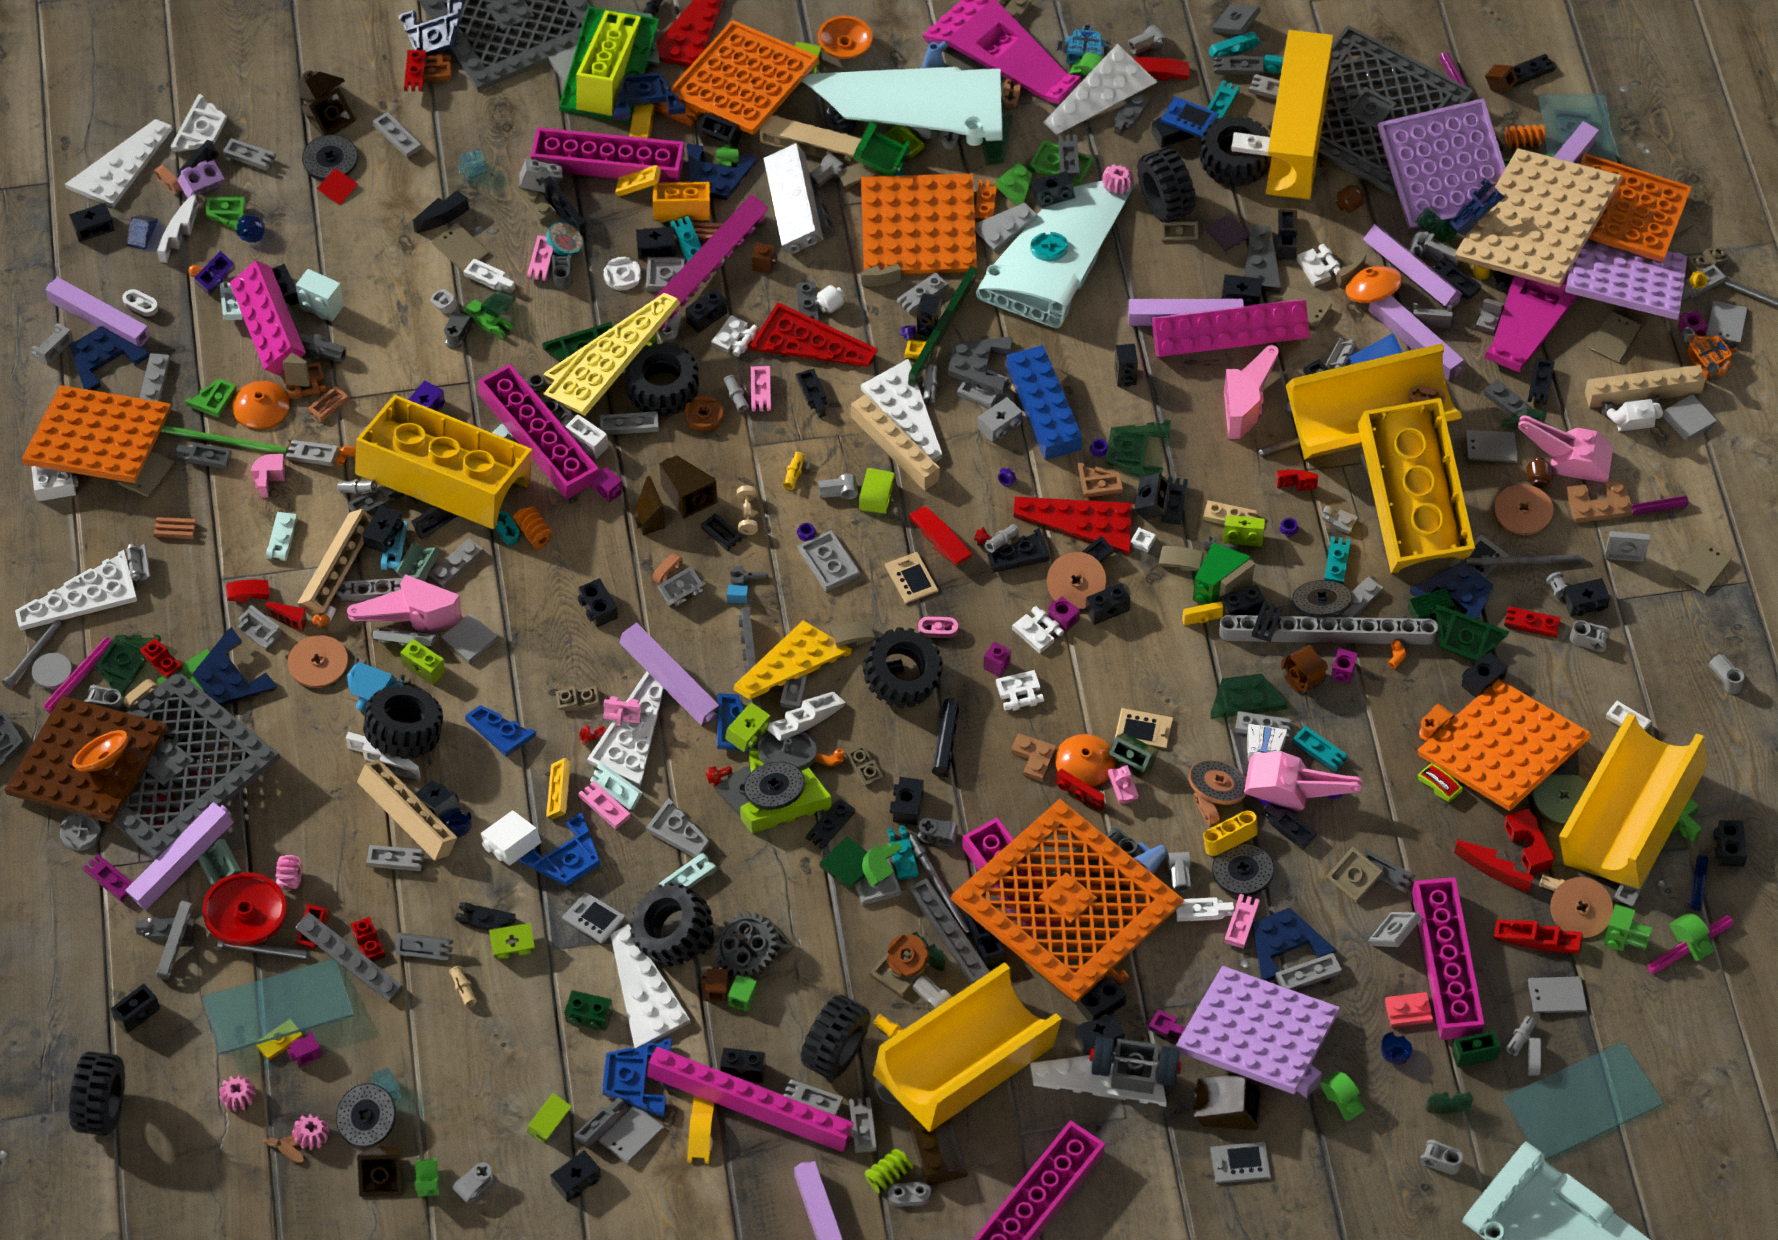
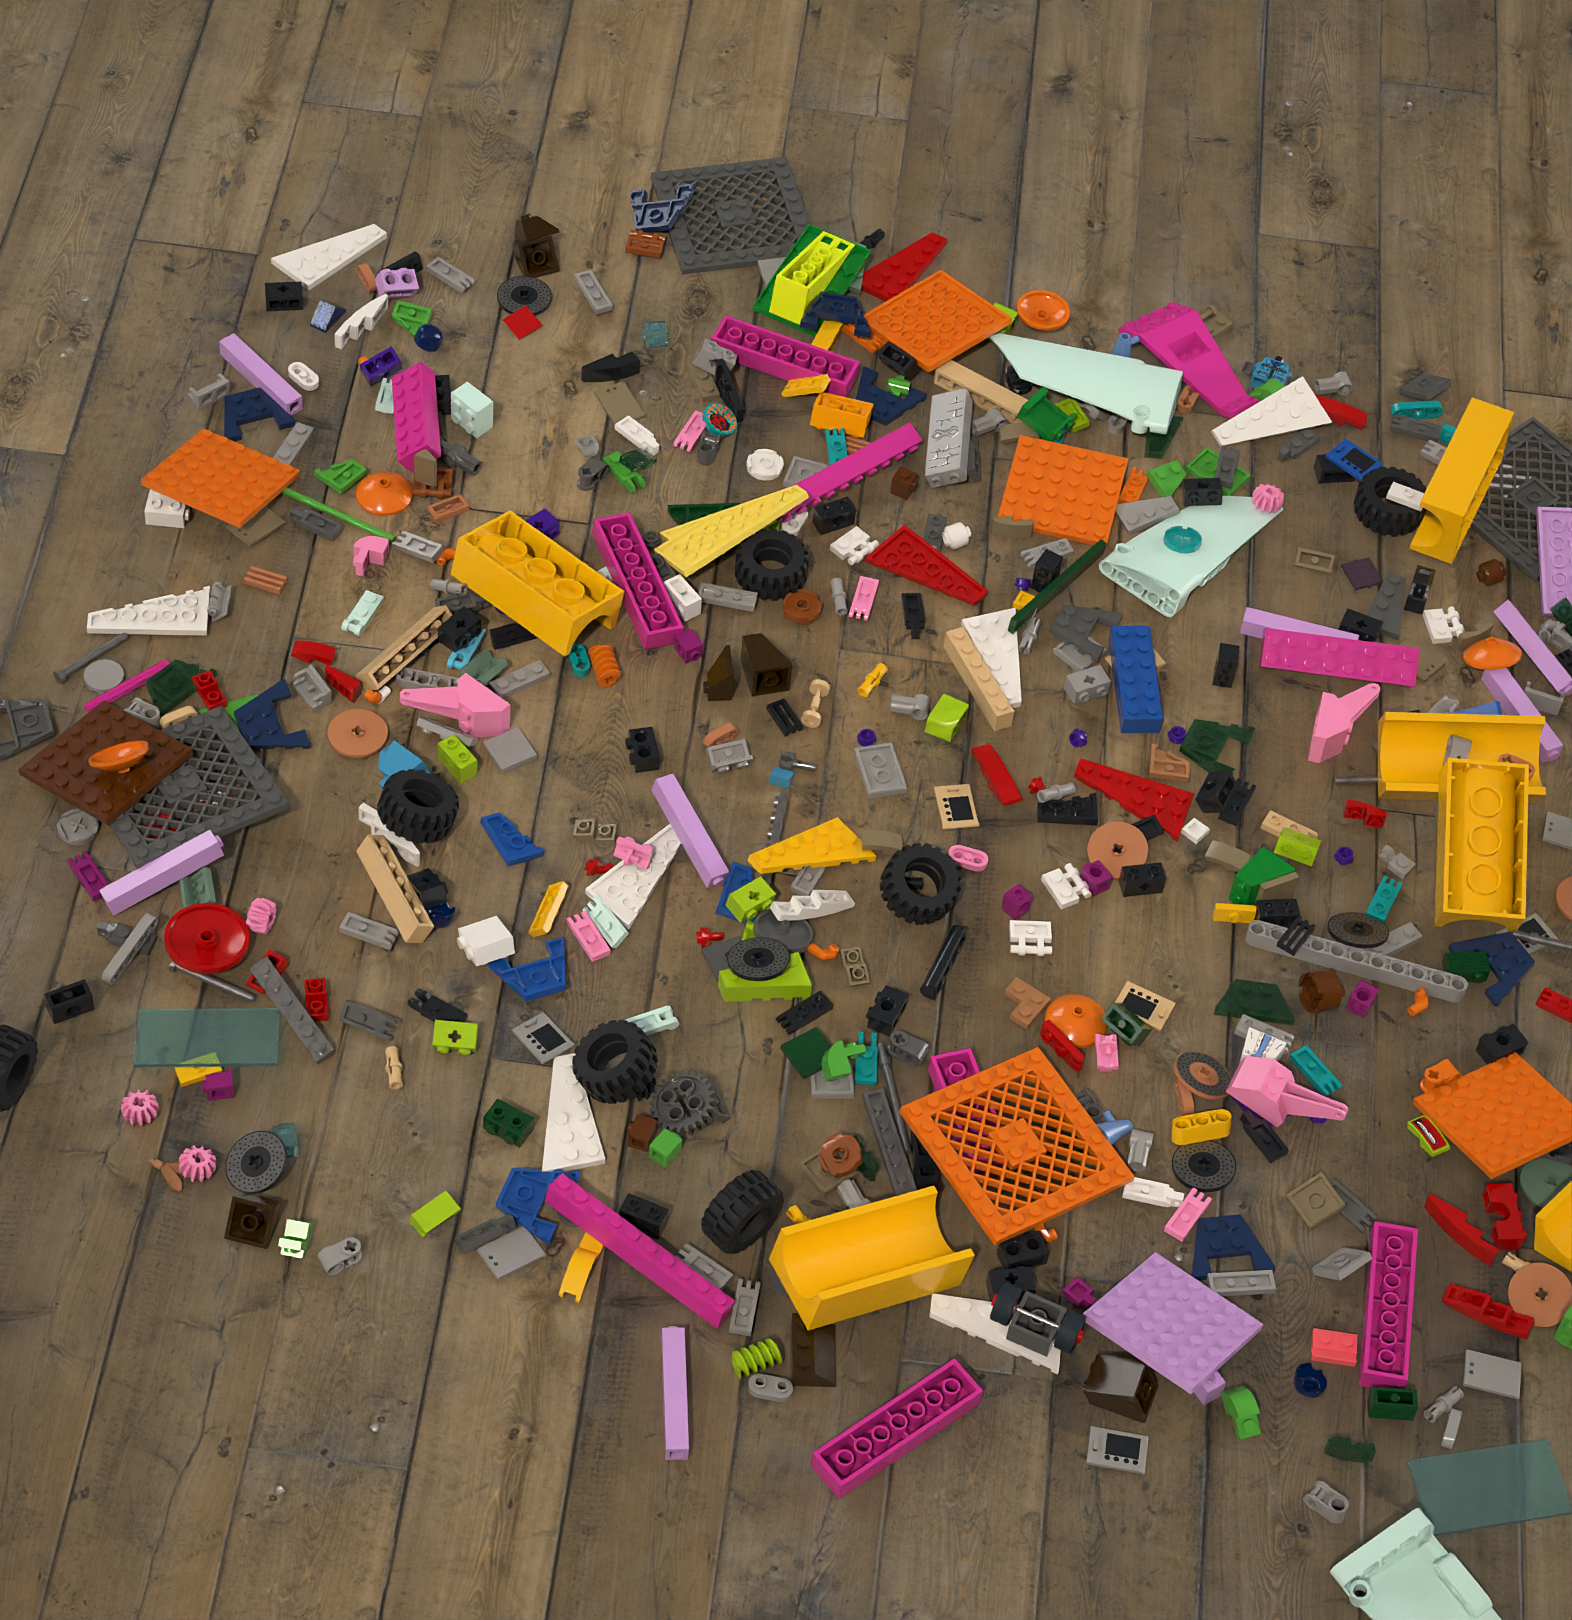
camera: 10 degrees right, 5 degrees down
(201, 124) = (415, 236): white wing -> none
(415, 70) = (628, 240): red hinge -> none
(576, 1176) = (442, 1277): black brick -> none
(655, 242) = (805, 444): black brick -> none
(676, 830) = (650, 977): light grey wing -> none
(1166, 184) = (1313, 512): black tyre -> none
(1223, 99) = (1393, 453): teal hinge -> none
(1368, 396) = (1457, 747): none -> light grey piece
(1466, 635) = (1494, 1002): dark green wing -> none

